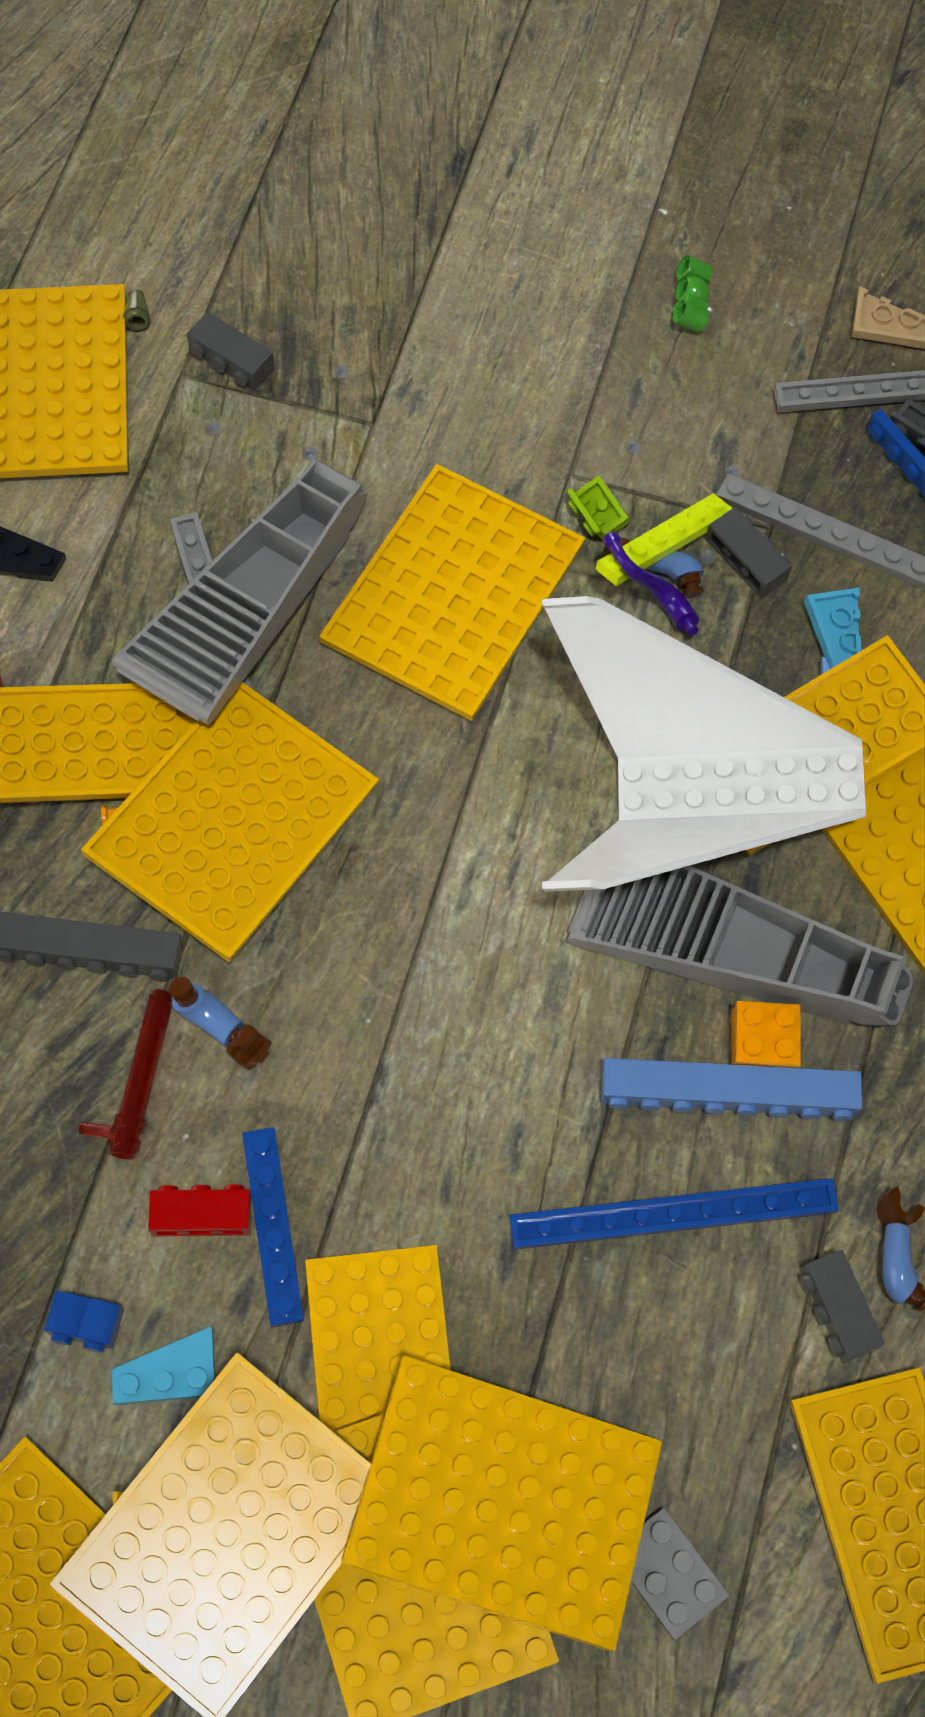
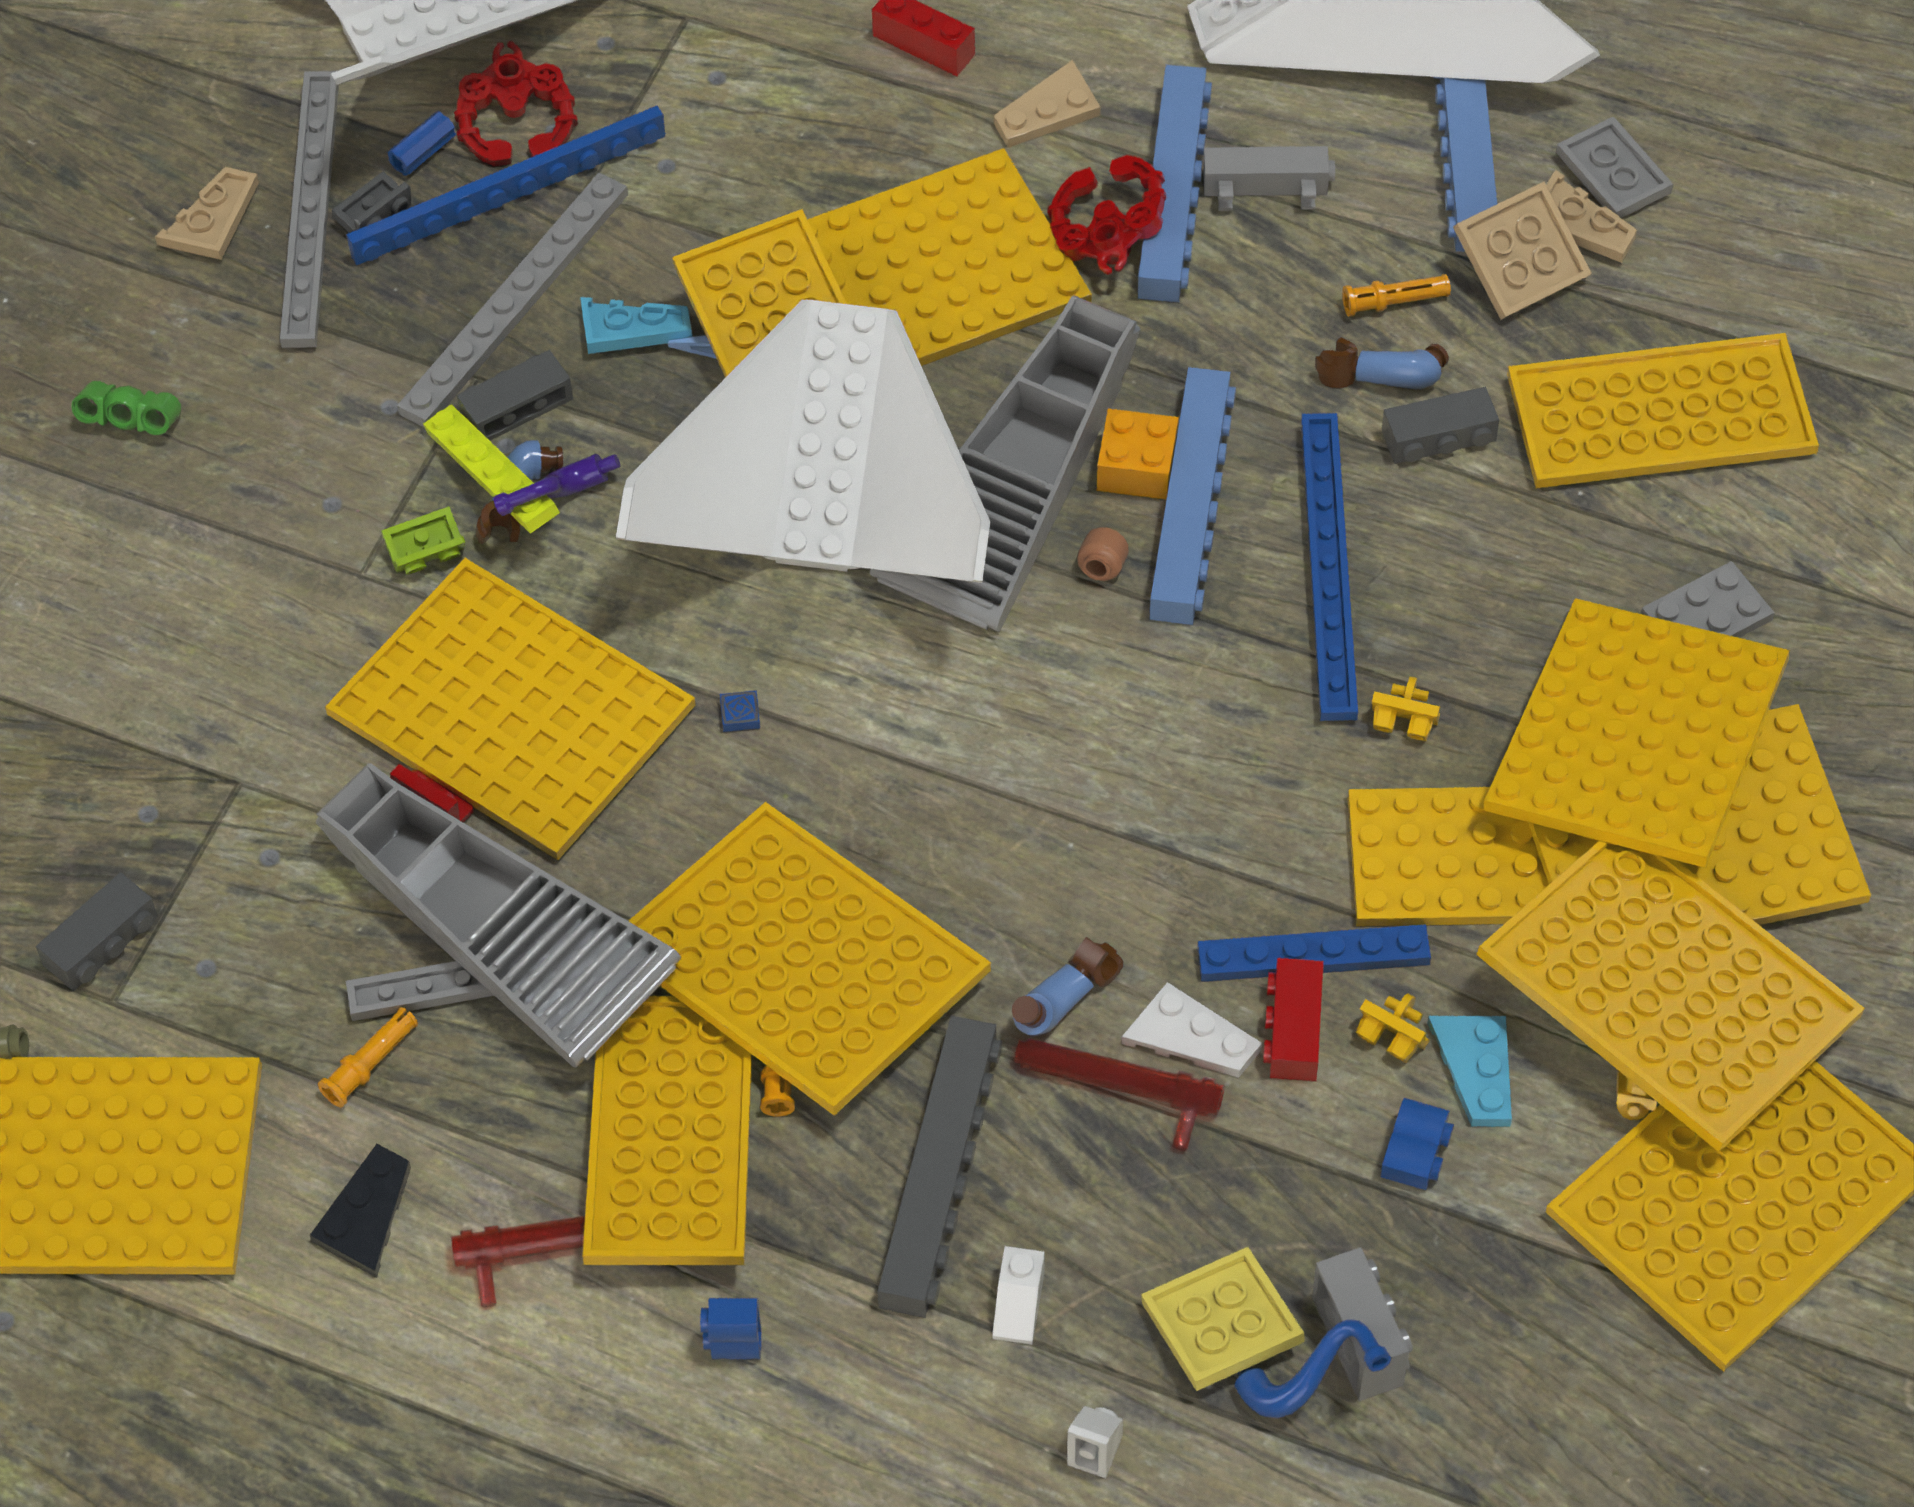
camera: 80 degrees left, 10 degrees down
(125, 531) = (356, 1068): none -> light orange pin
(188, 1130) = (1190, 1030): none -> white wing
(199, 1298) = (1407, 1036): none -> yellow hips
(360, 544) = (432, 792): none -> red bracket
(469, 754) = (740, 711): none -> blue tile
(527, 1291) = (1421, 714): none -> yellow hips
(655, 1018) = (1102, 554): none -> nougat head

